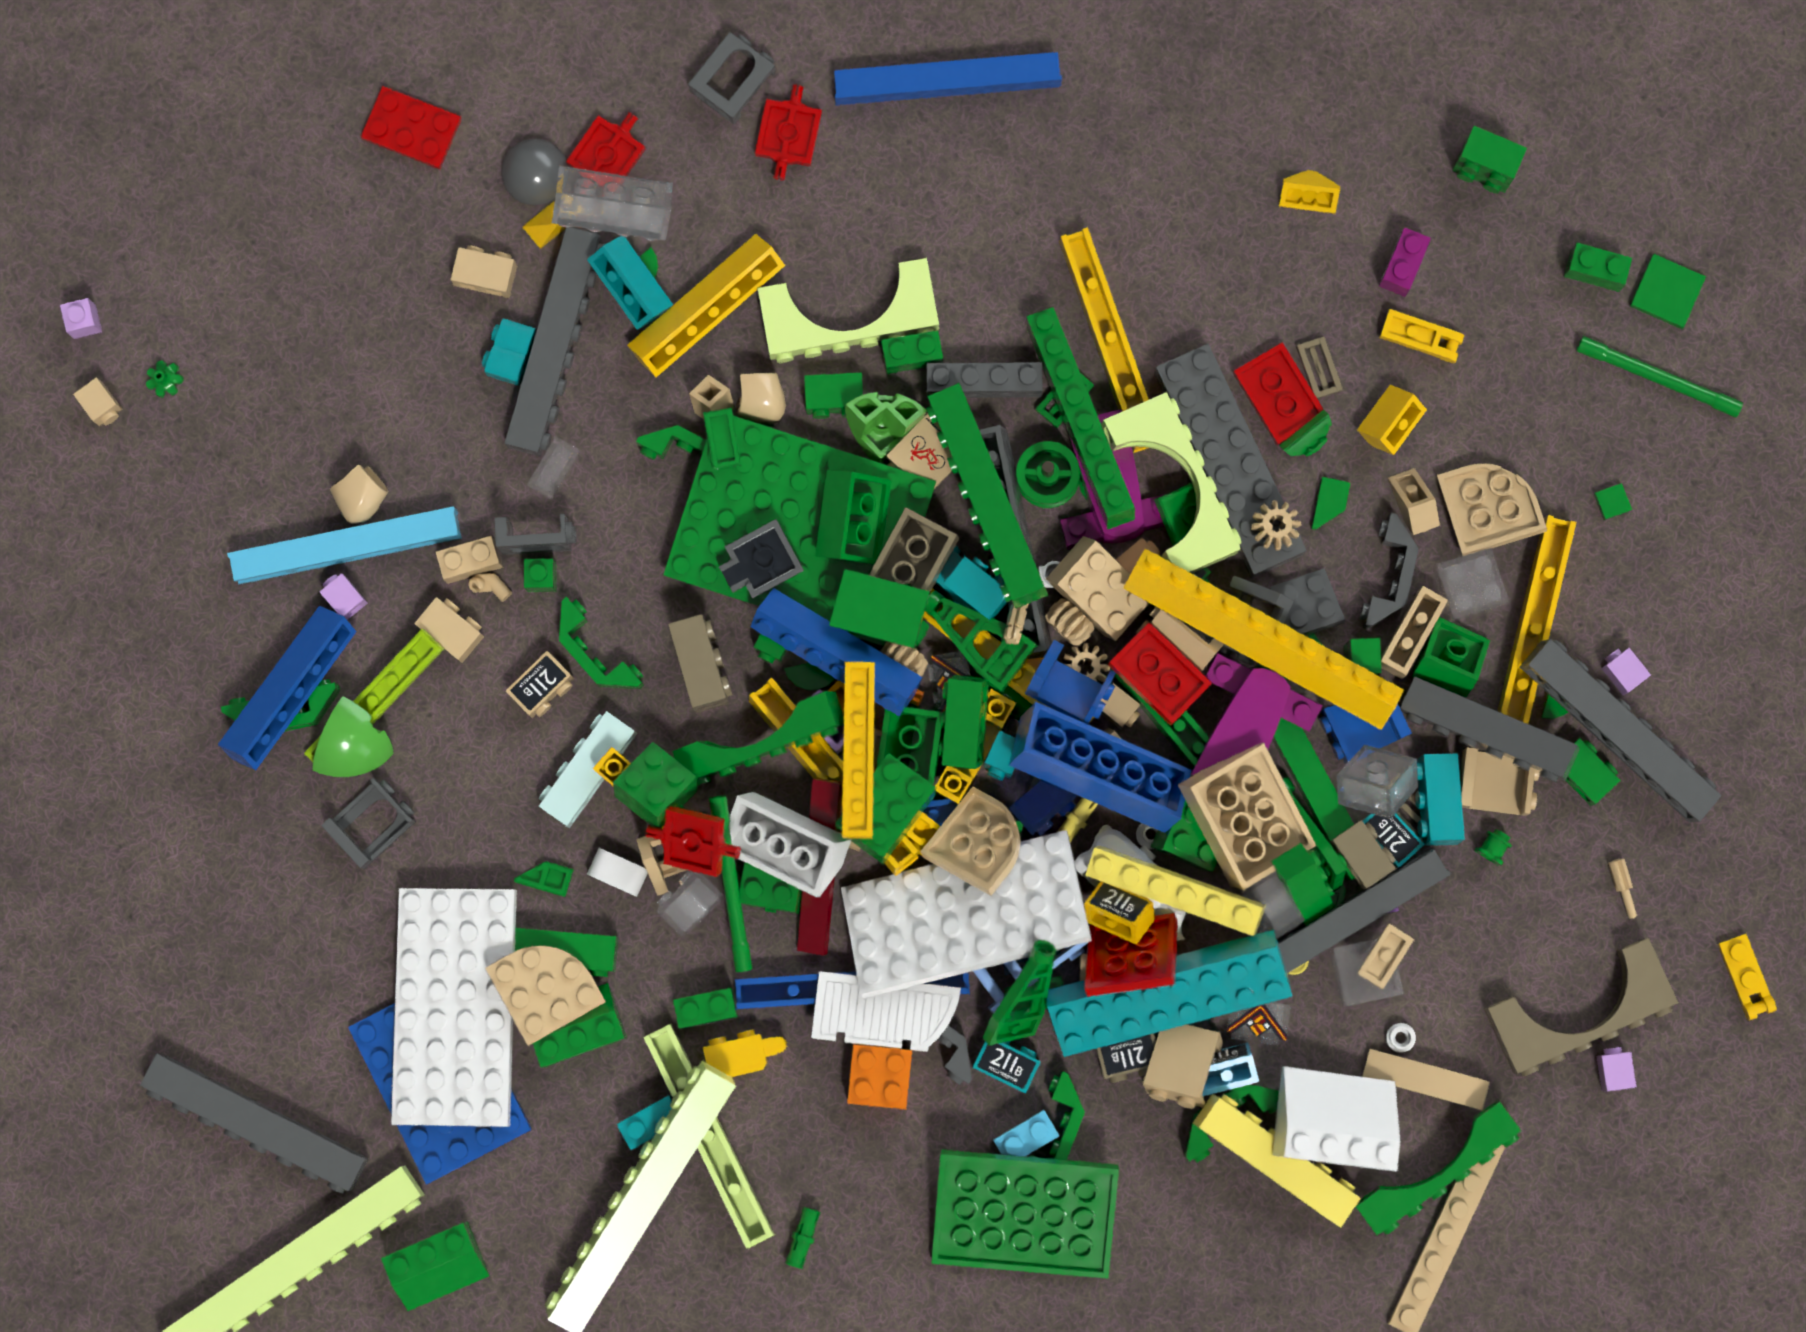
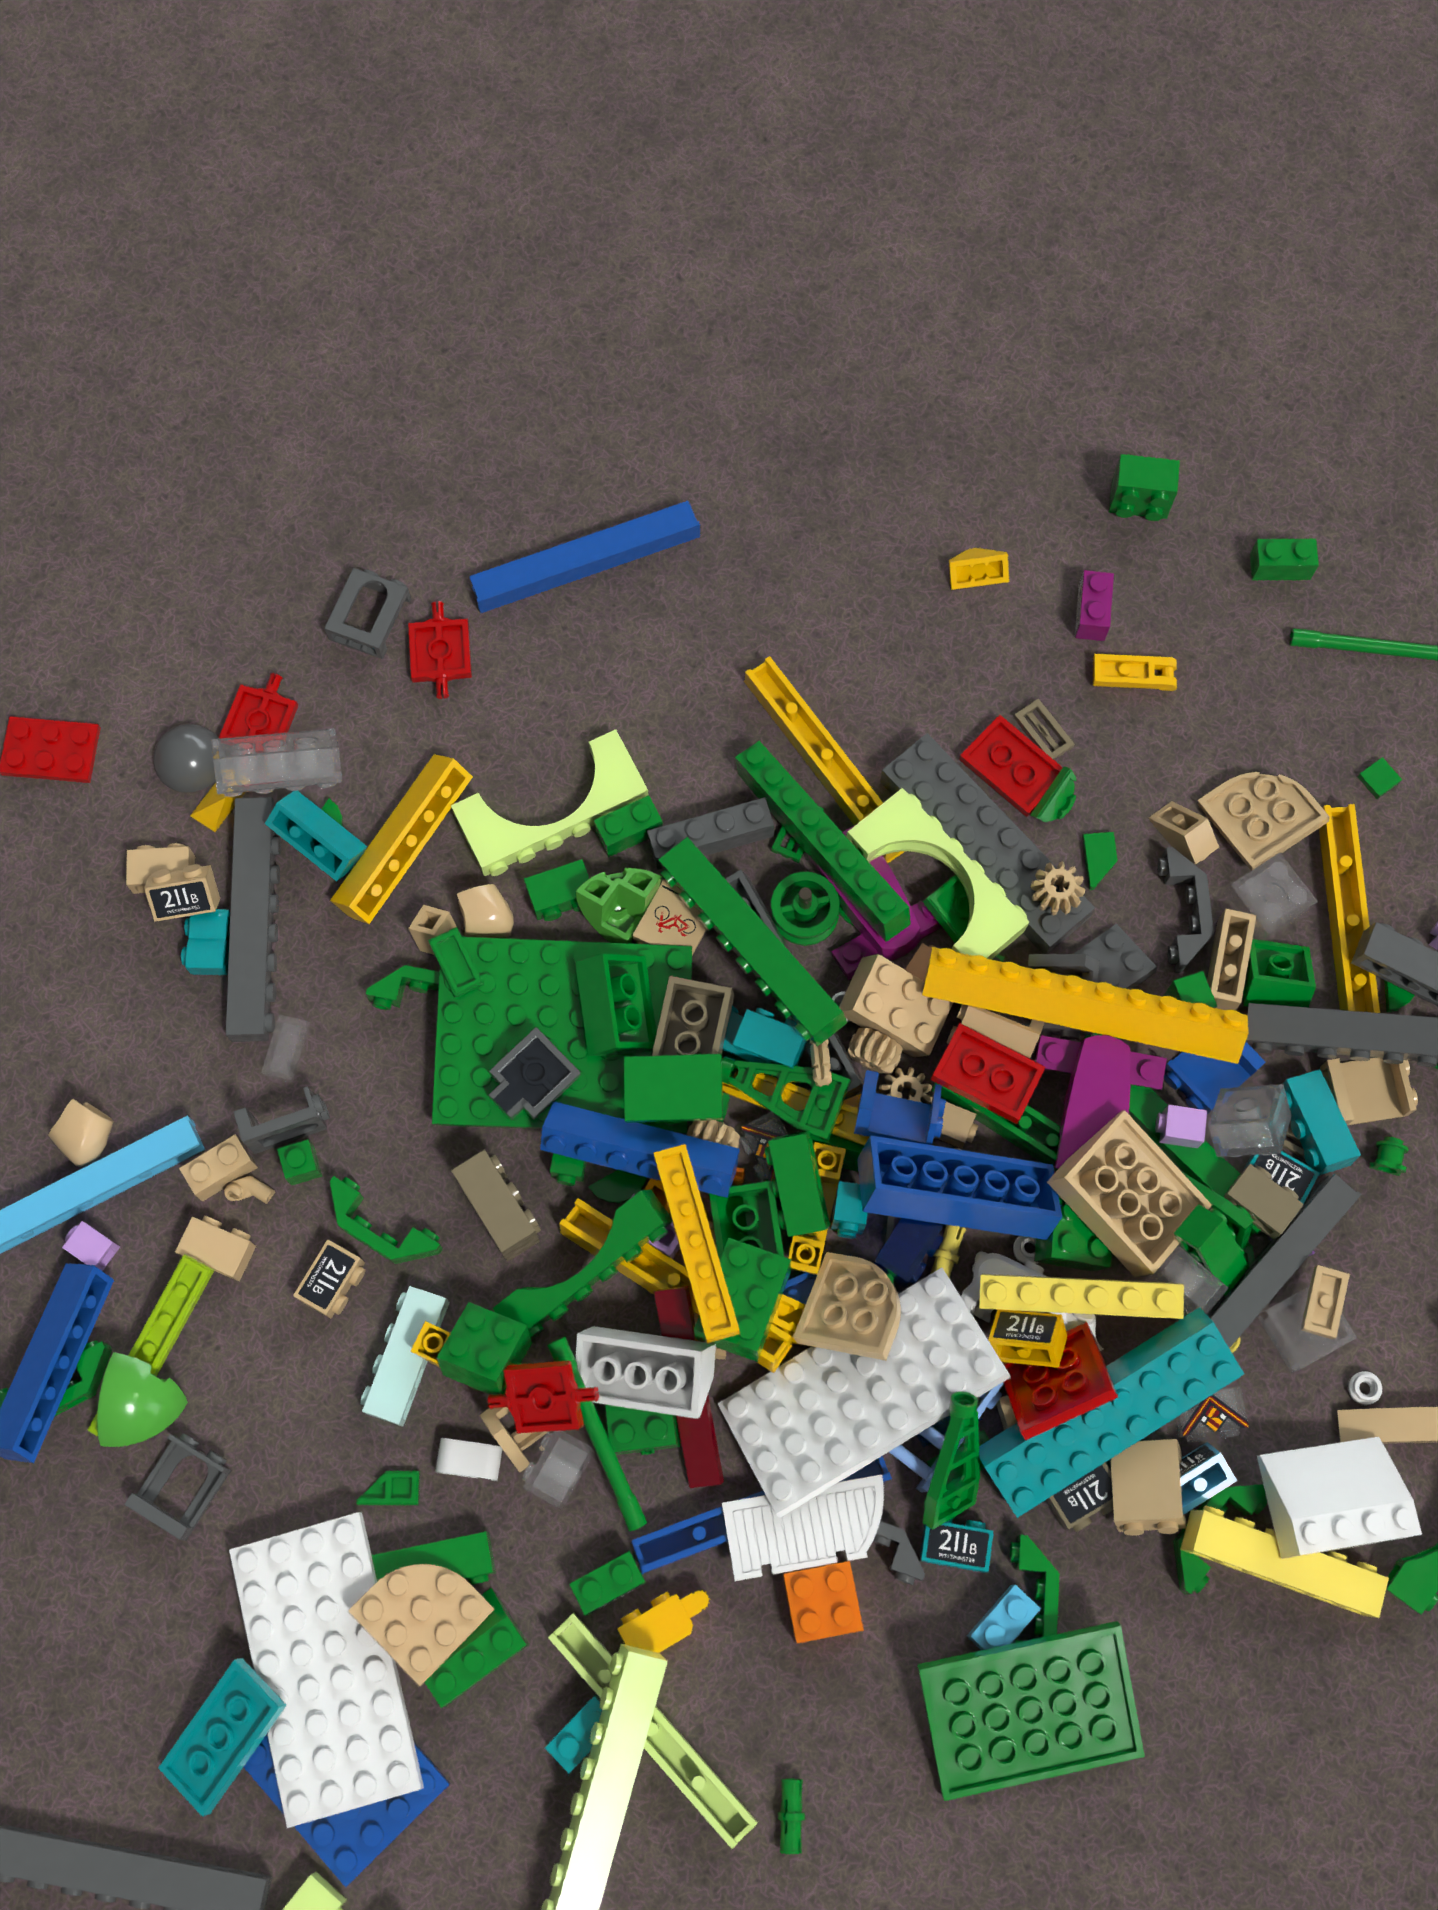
camera: 20 degrees left, 10 degrees down
(356, 1037) = (222, 1736): none -> teal plate
(498, 302) = (182, 892): none -> brick
(1315, 769) = (1182, 1126): none -> lavender brick
(1391, 419) = (1134, 757): yellow brick -> none
(1667, 291) = (1358, 566): green tile -> none

